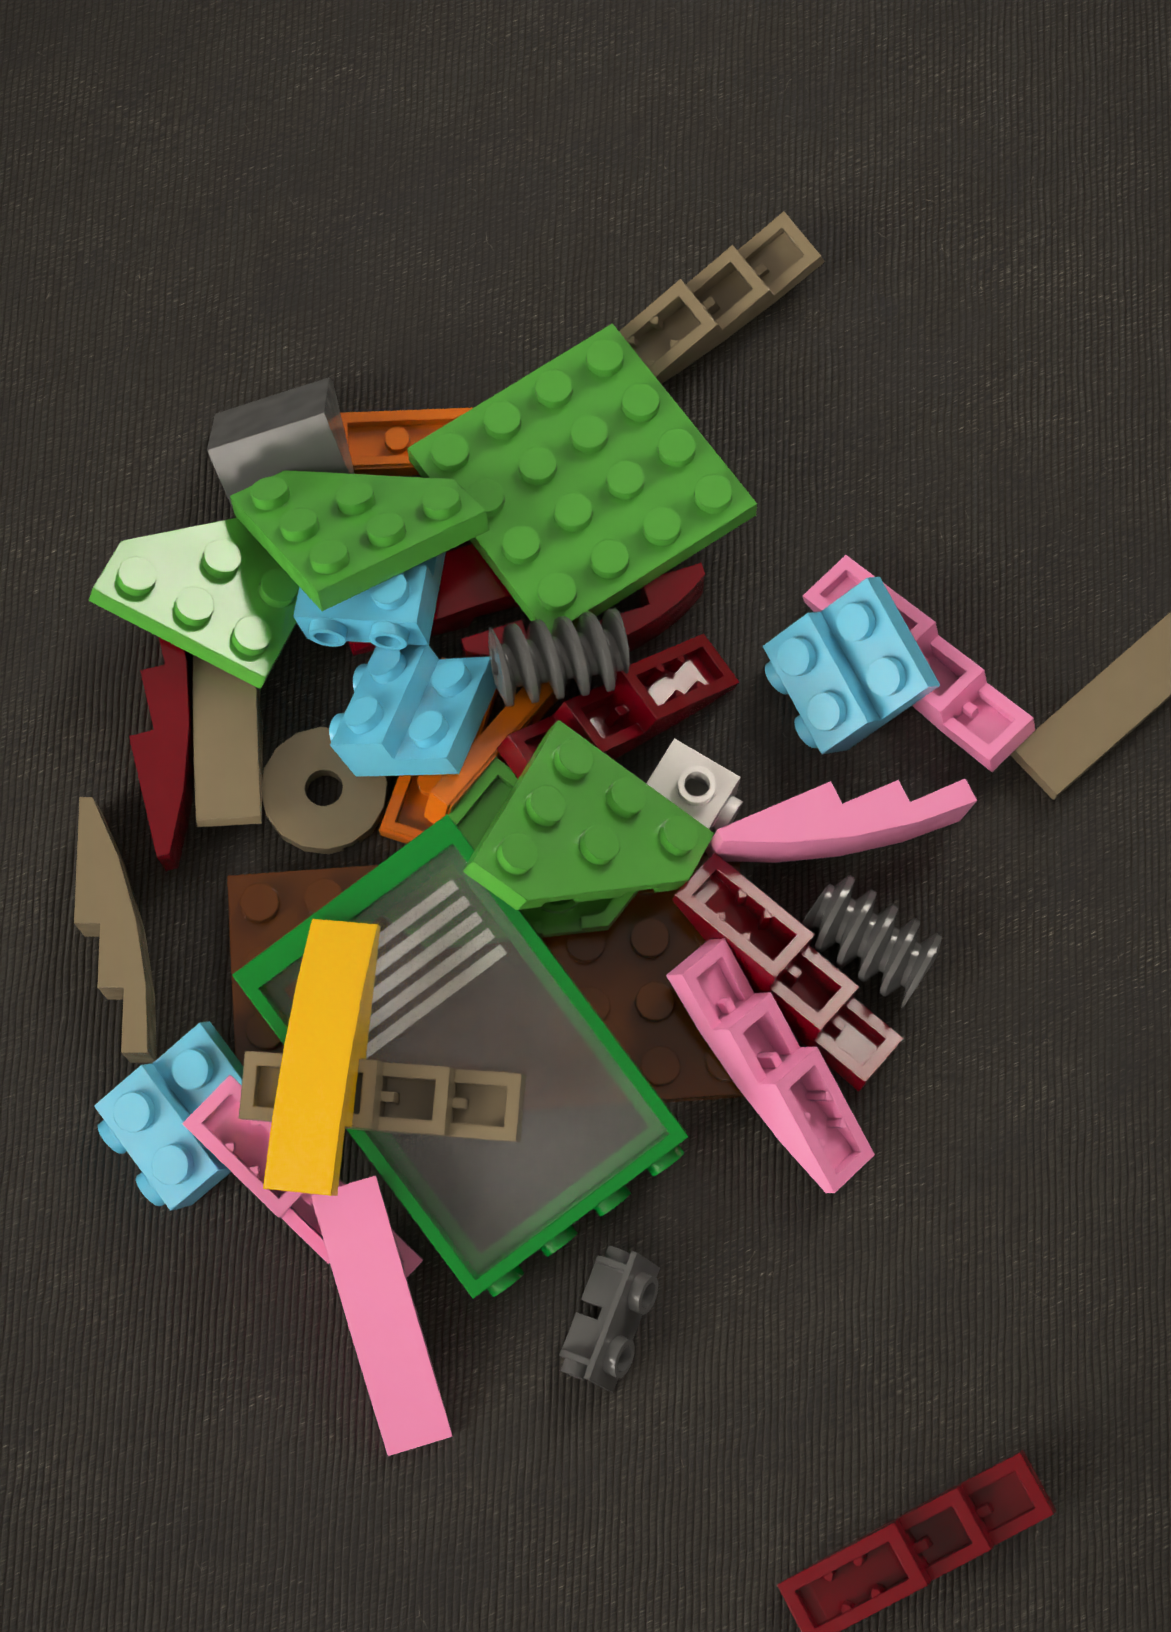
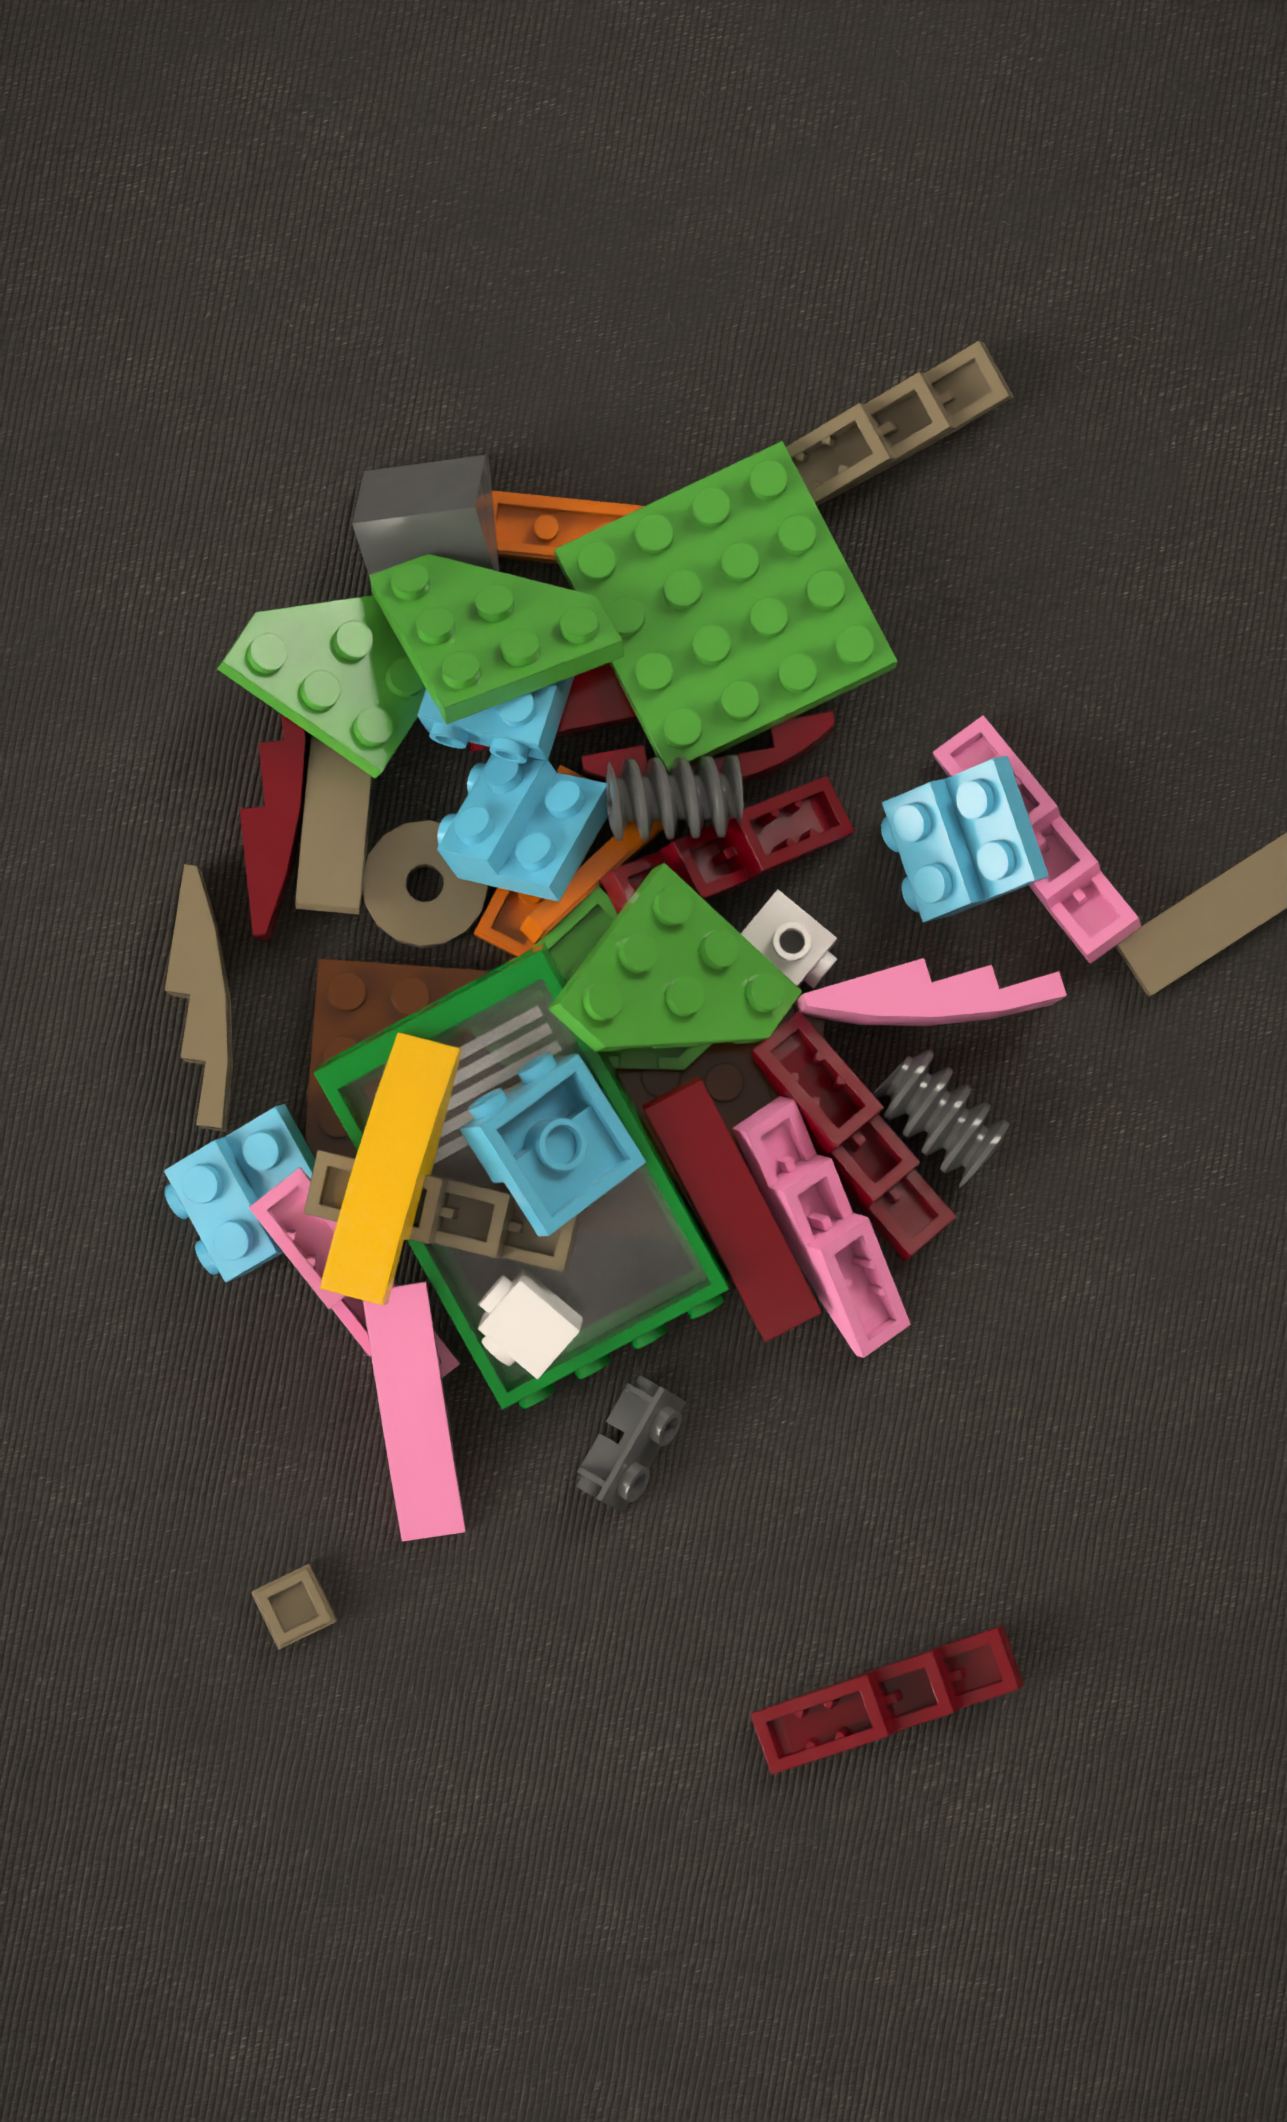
camera: 10 degrees right, 10 degrees up
(284, 1542) = (294, 1606): none -> dark tan tile
(485, 1006) = (552, 1140): none -> medium azure plate
(485, 1201) = (526, 1323): none -> white brick
(678, 1058) = (731, 1209): none -> dark red slope

